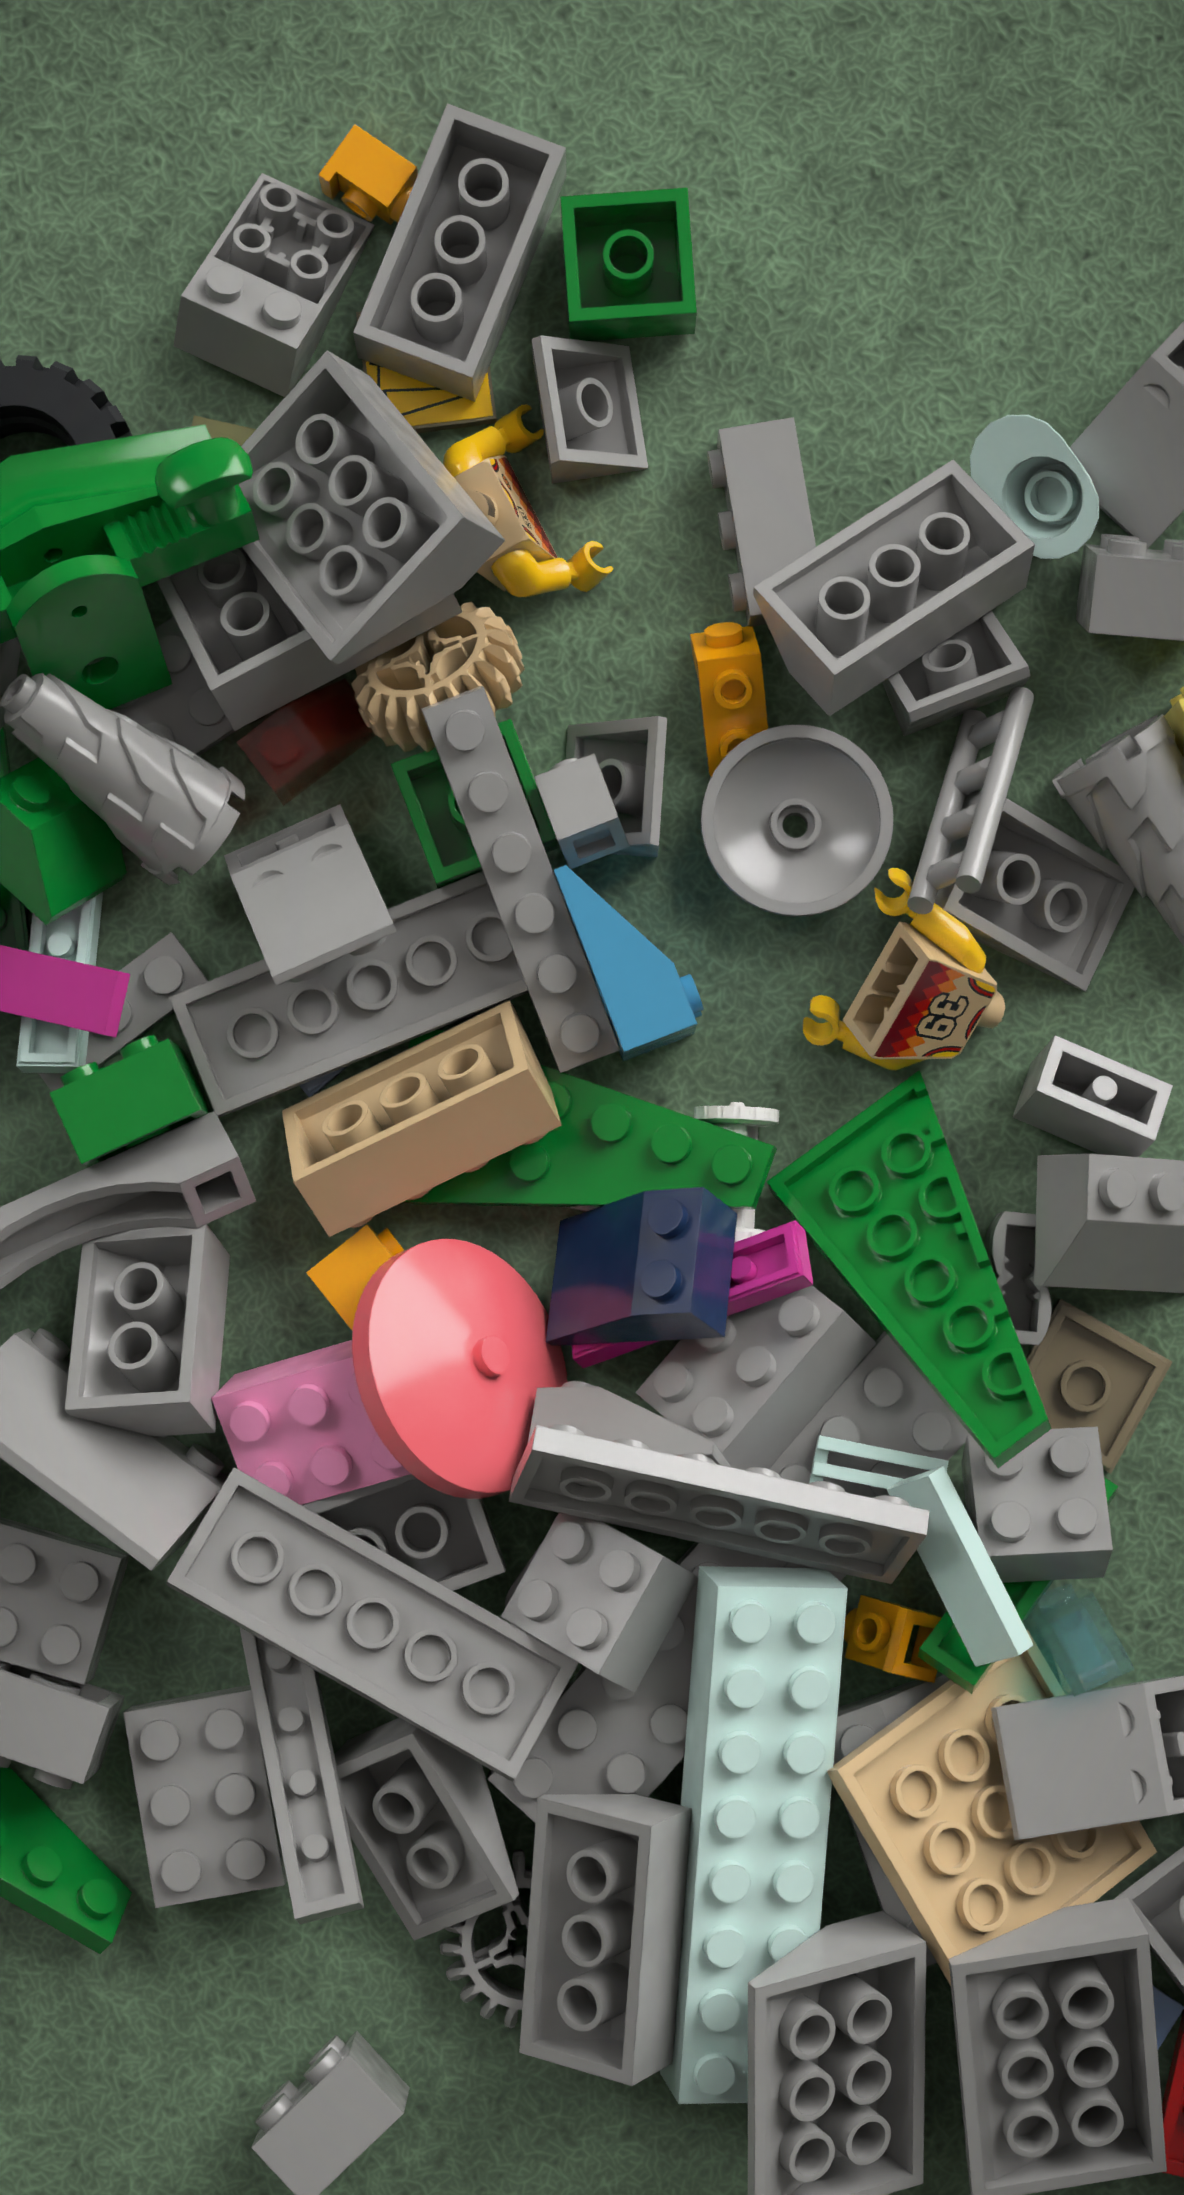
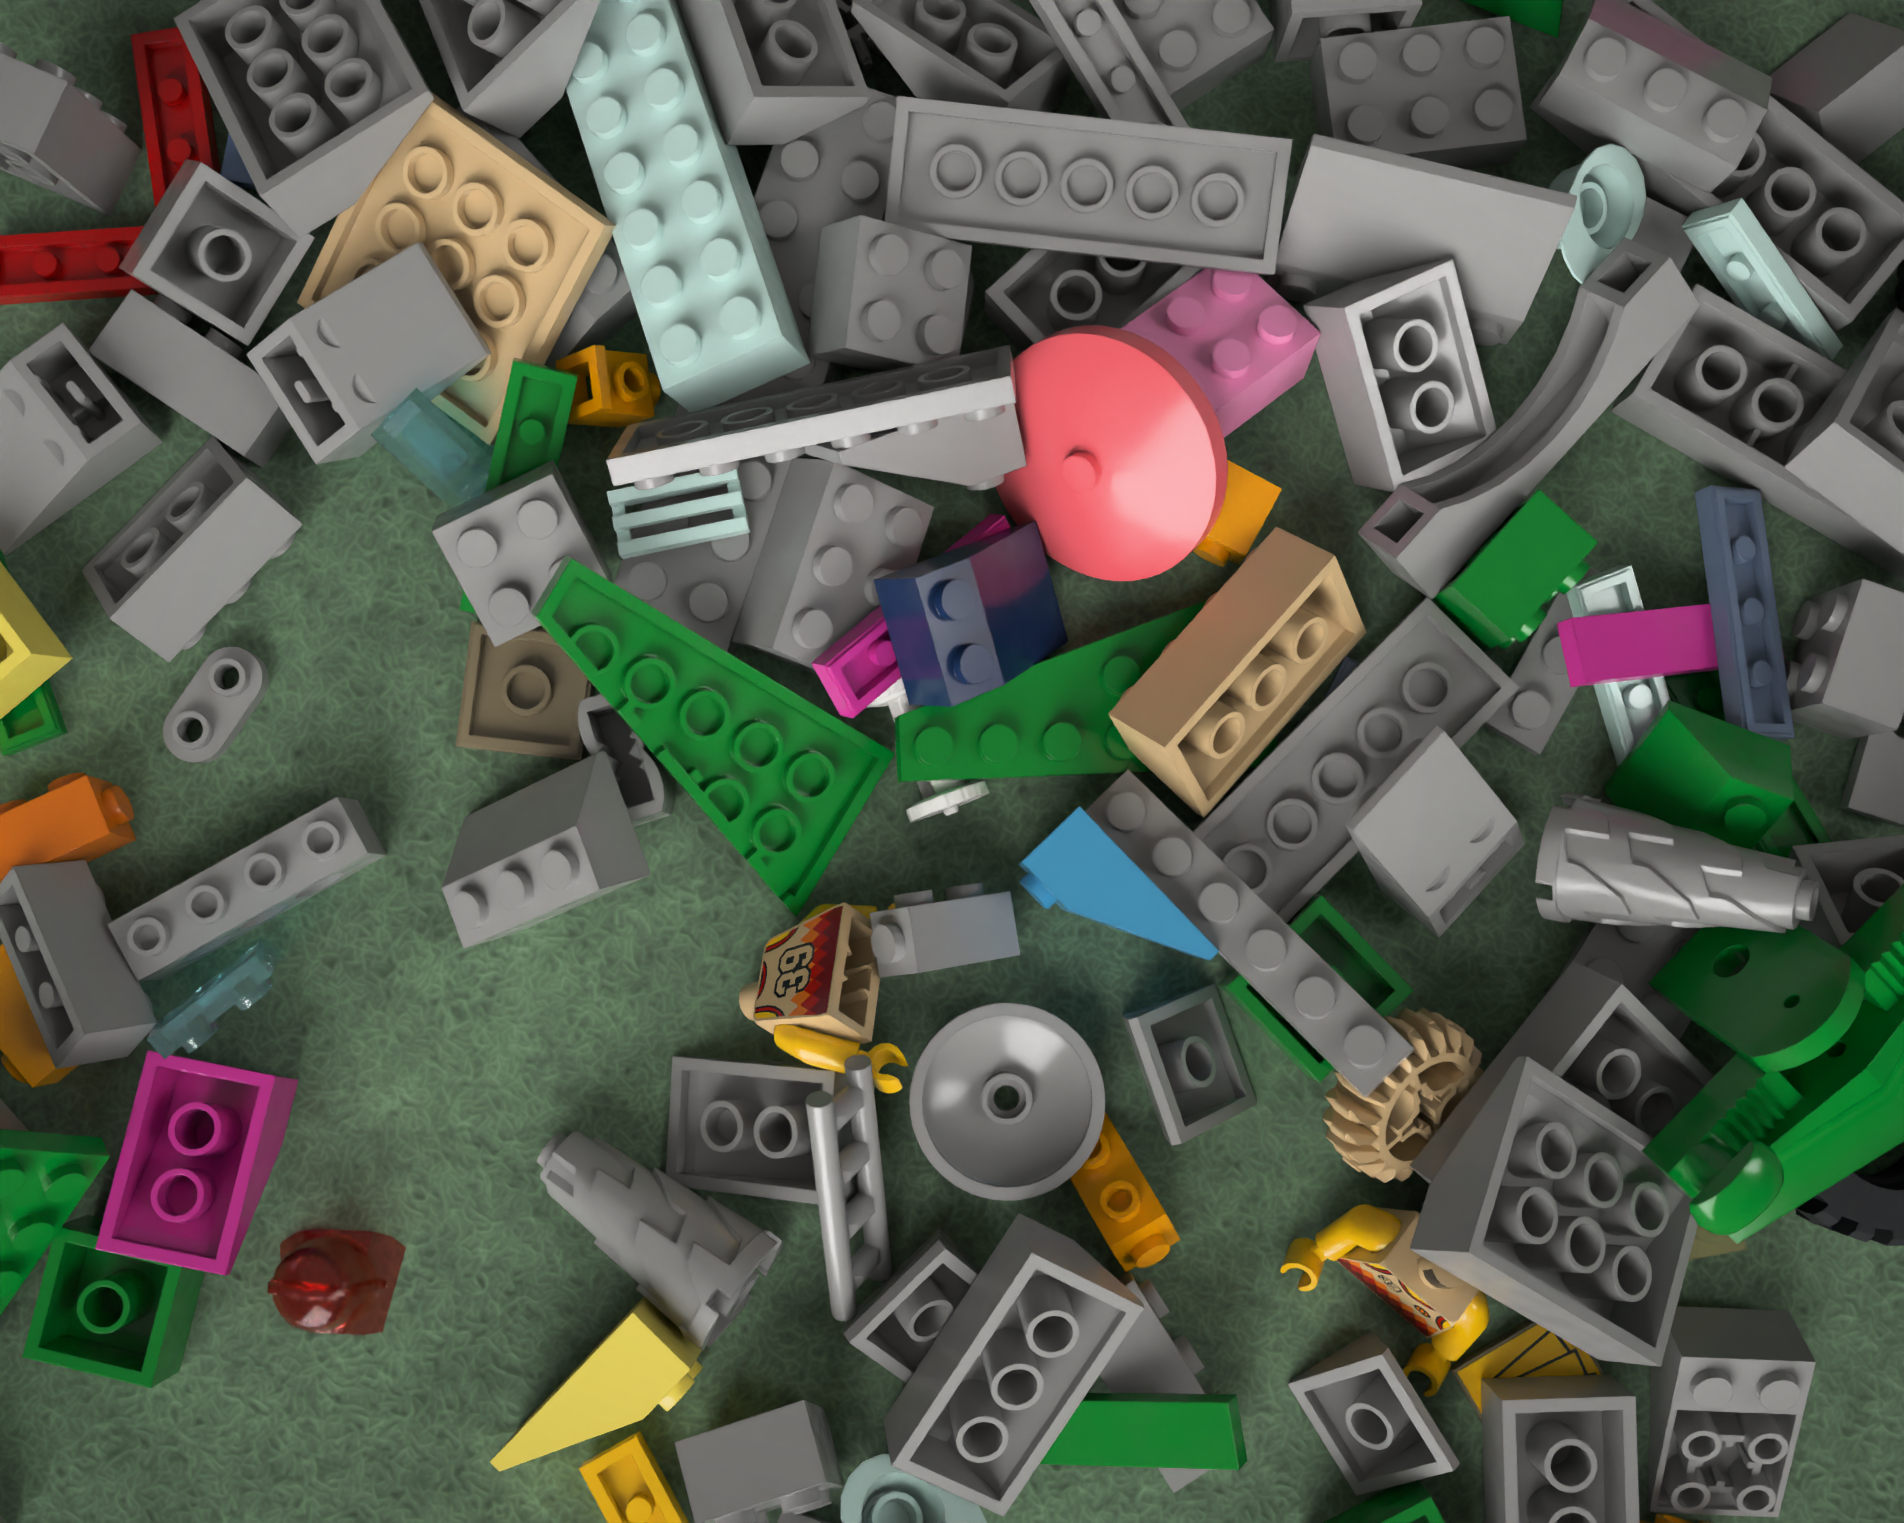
camera: 160 degrees right, 0 degrees up
(306, 739) = (1499, 982): clear red slope -> none
(581, 810) = (1215, 1021): light grey brick -> none
(791, 994) = (943, 934): none -> light grey brick
(792, 477) = (1152, 1432): none -> green tile
(964, 1571) = (564, 456): light aqua tile -> none
(1092, 1100) = (622, 952): light grey brick -> none

